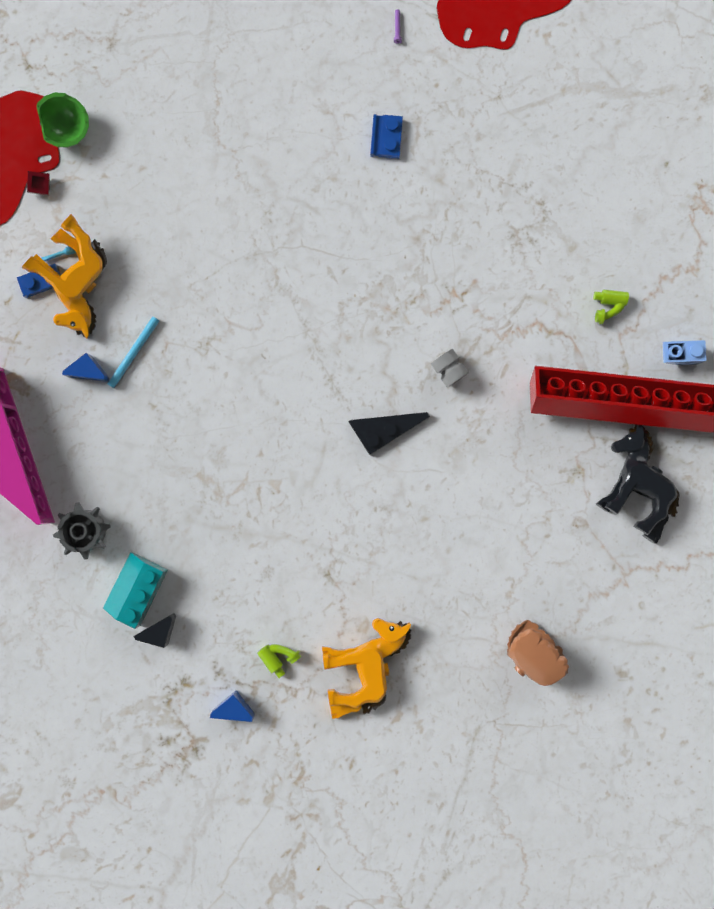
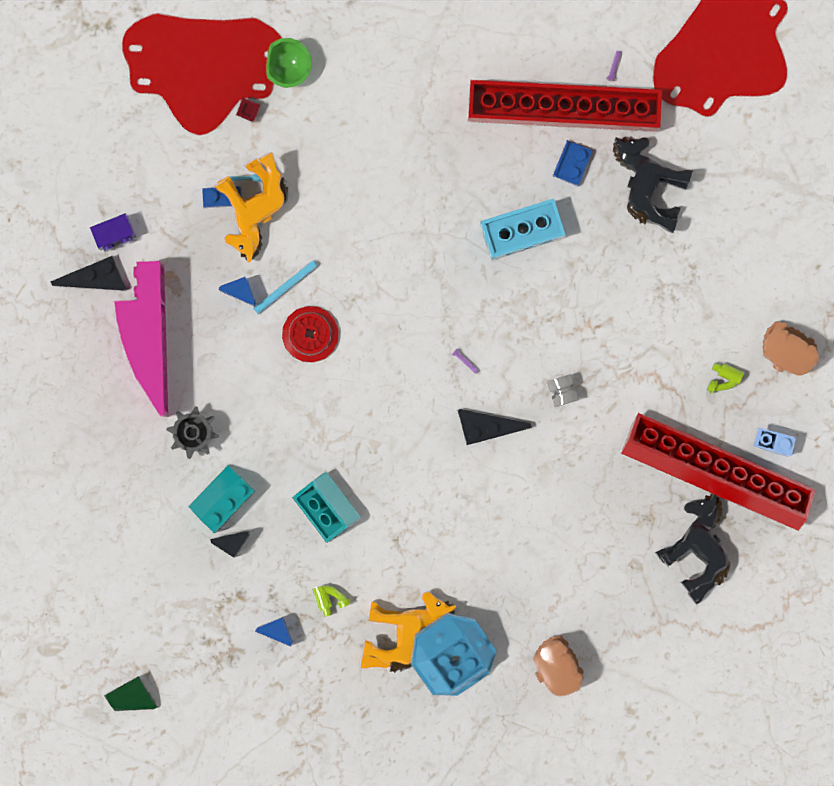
camera: 20 degrees right, 0 degrees up
(103, 825) = (131, 697): none -> dark green slope
(189, 390) = (324, 338): none -> red piece
(244, 563) = (326, 507): none -> teal slope
(339, 369) = (465, 361): none -> medium lavender piece
(357, 202) = (525, 216): none -> medium azure brick
(360, 77) = (565, 105): none -> red brick
(412, 663) = (447, 638): none -> dark azure piece
(466, 129) = (645, 181): none -> black animal
(669, 253) = (789, 349): none -> nougat animal

